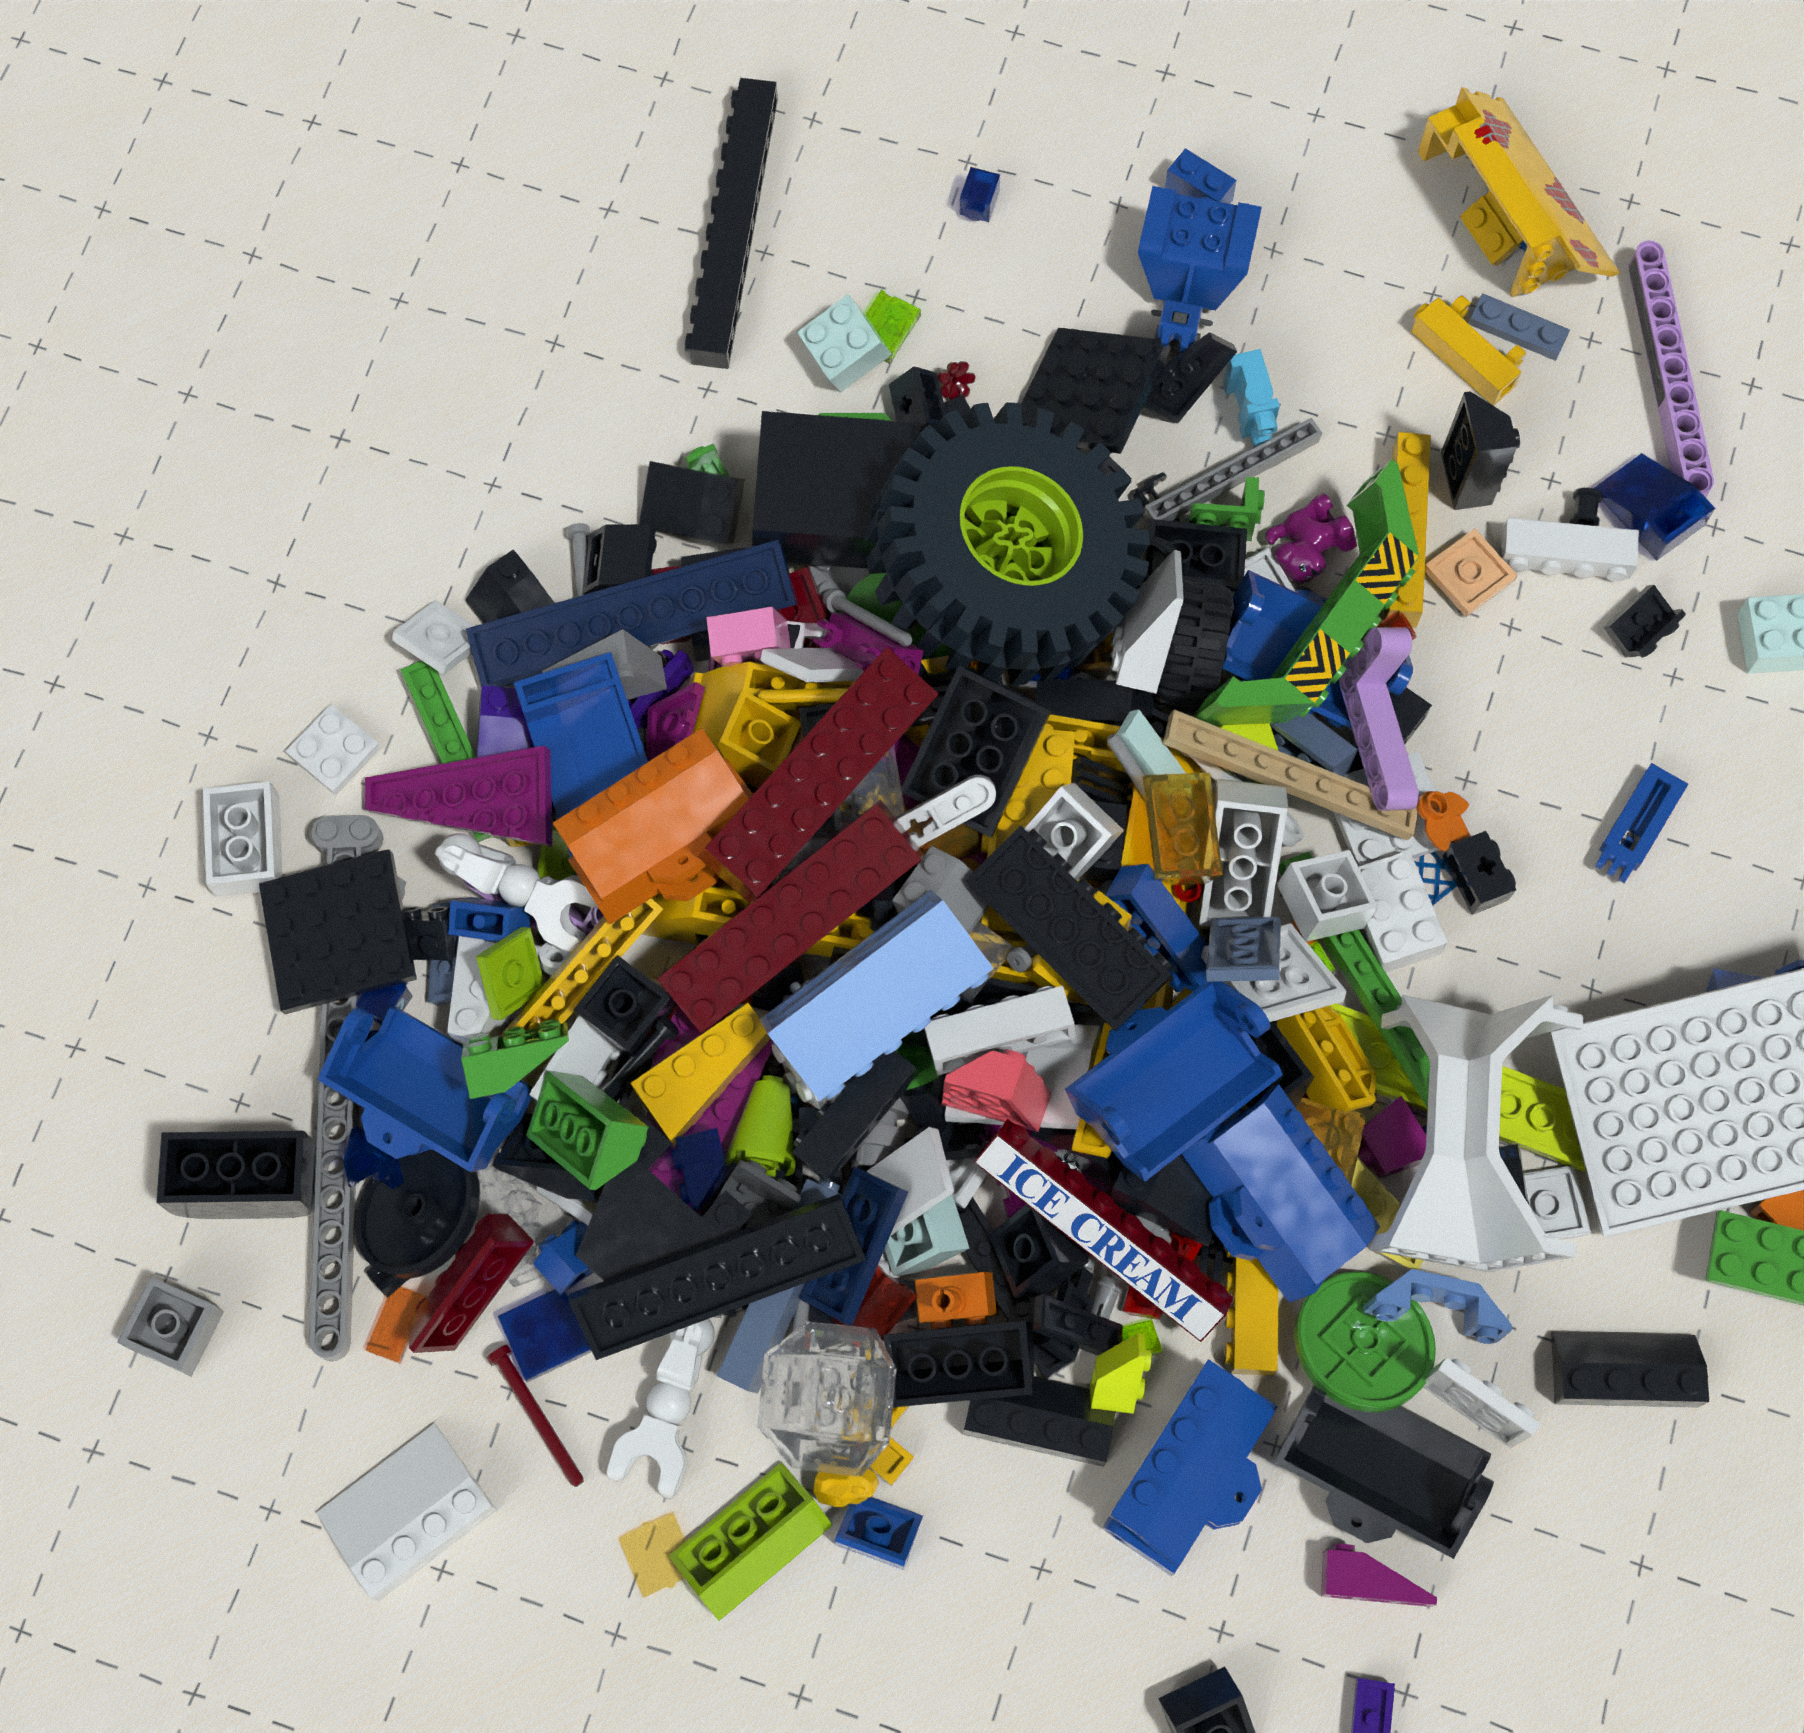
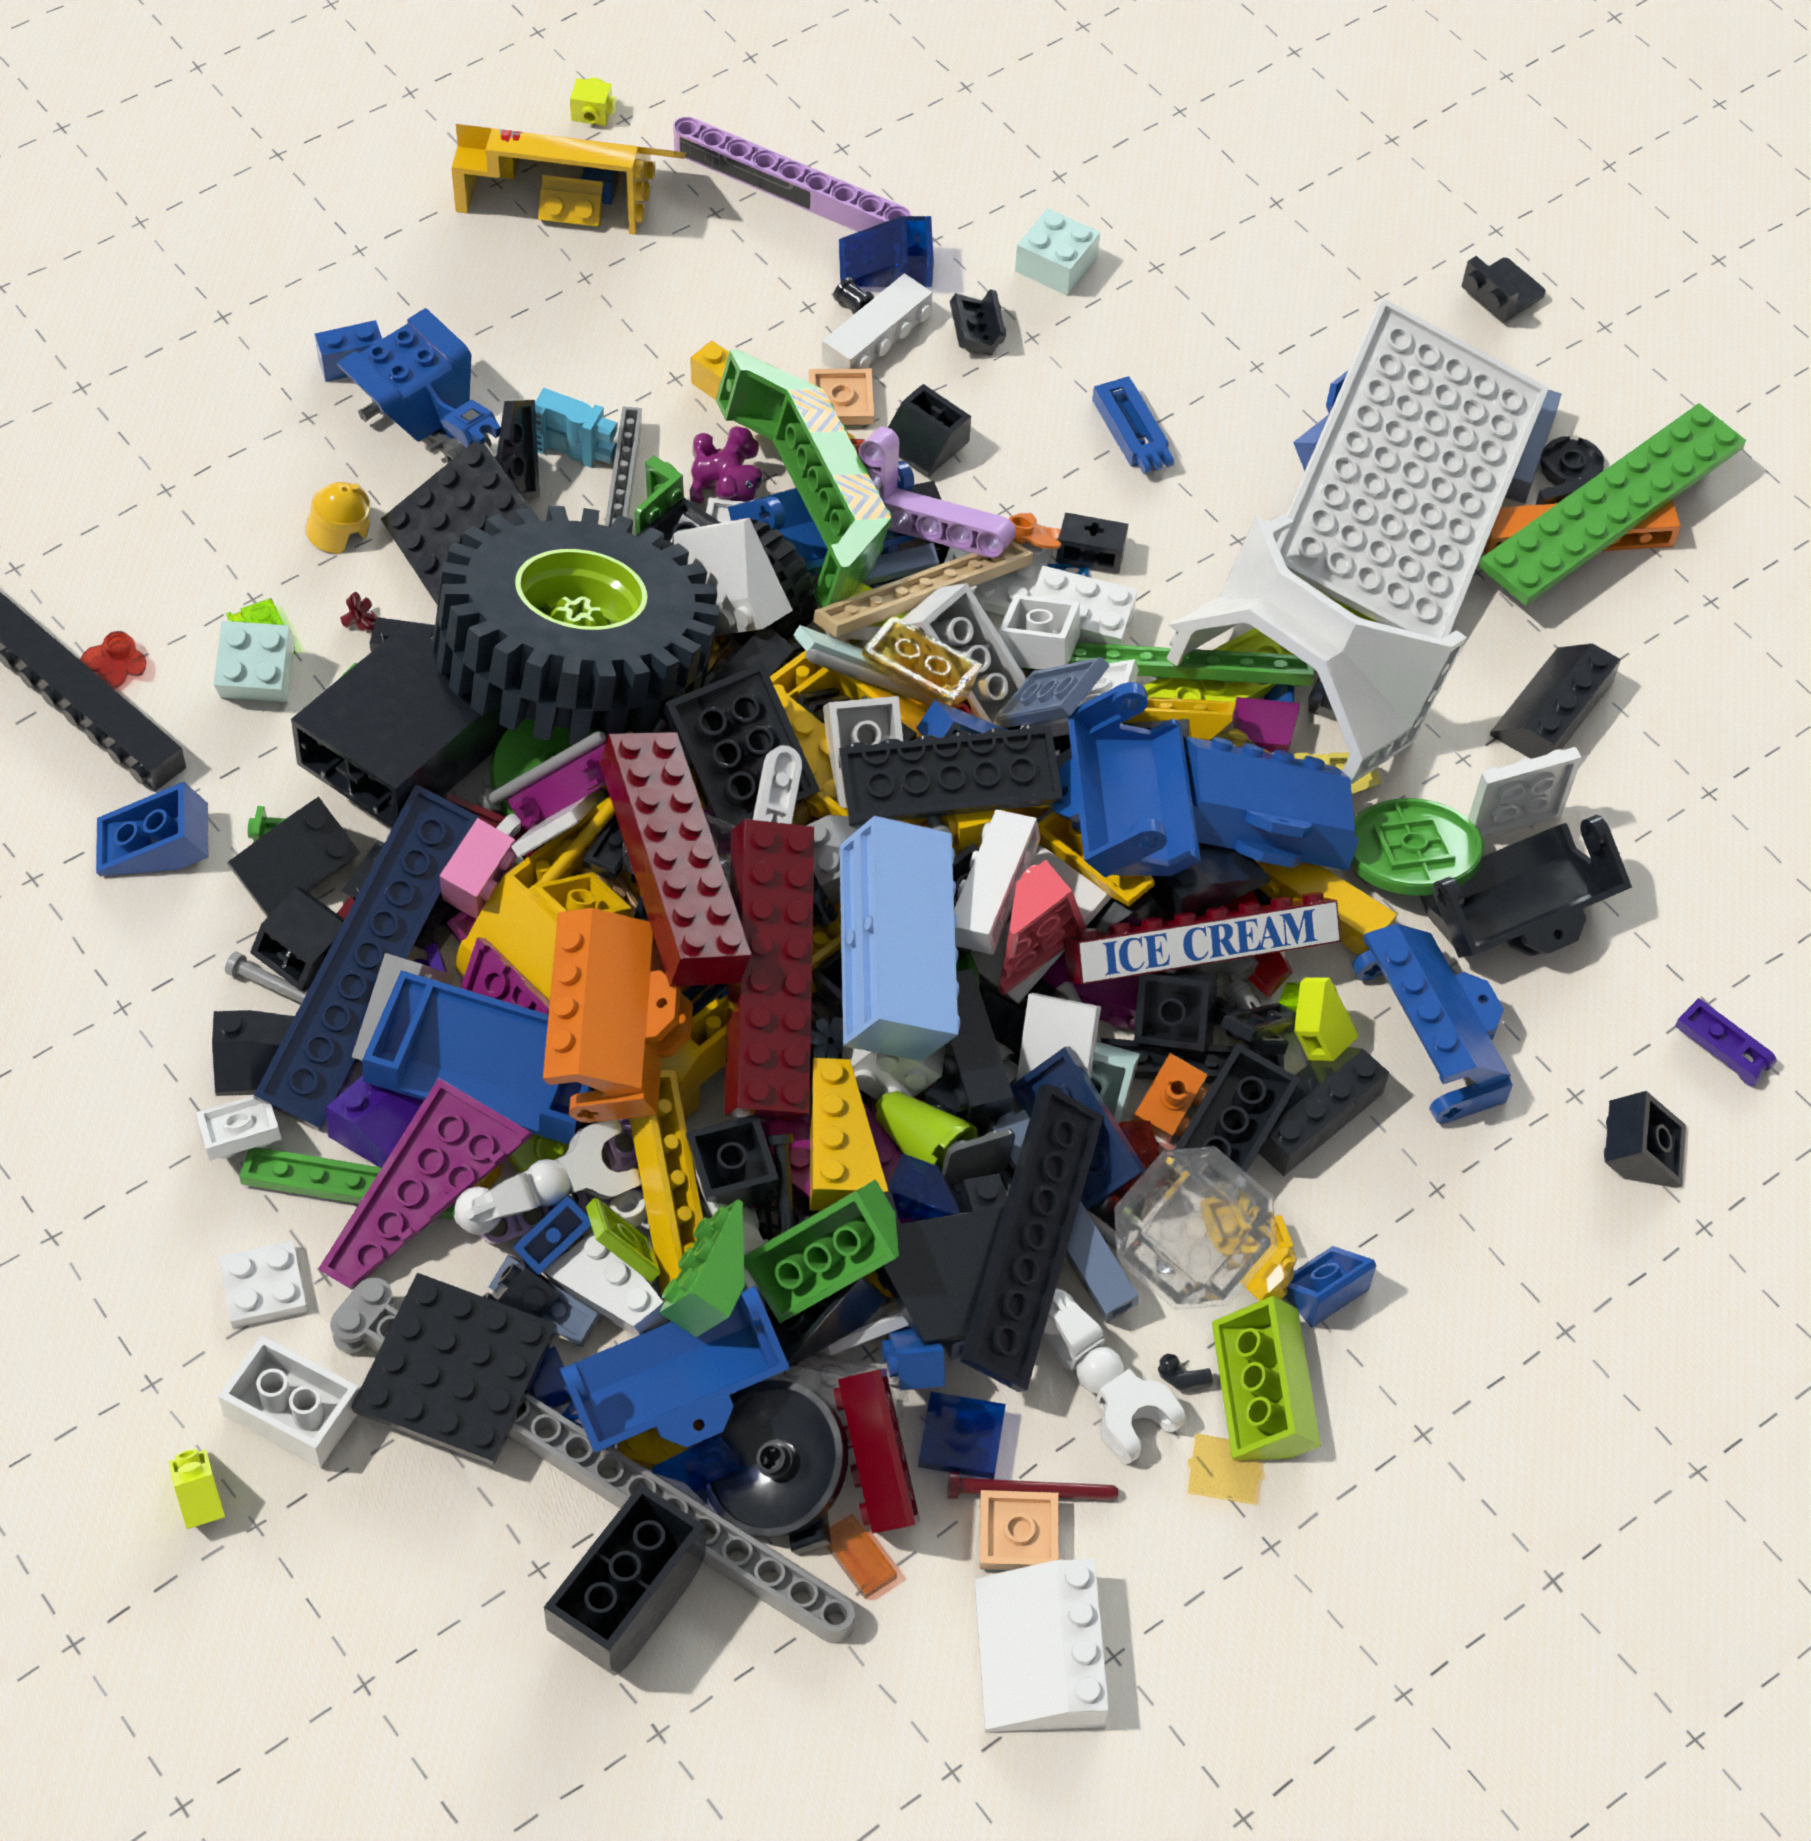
camera: 60 degrees left, 15 degrees down
(139, 826) = (195, 1488): none -> neon yellow slope
(170, 1326) = (719, 1743): light grey brick -> none
(492, 1430) = (1017, 1529): none -> light nougat plate
(646, 393) = (154, 833): none -> blue slope
(713, 1470) = (1180, 1378): none -> black arm
(776, 249) = (115, 664): none -> clear red plate
(918, 397) = (350, 641): black brick -> none
(979, 194) = (209, 494): clear blue brick -> none
(1028, 300) = (336, 514): none -> yellow helmet
(1363, 1578) = (1602, 965): magenta slope -> none
(1466, 350) = (655, 282): yellow brick -> none
(1478, 452) = (759, 309): black slope -> none
(1481, 1317) = (1440, 760): medium blue slope -> none
(1485, 663) = (929, 429): none -> black slope
(1519, 326) = (664, 244): sand blue plate -> none
(1619, 163) = (592, 101): none -> neon yellow brick

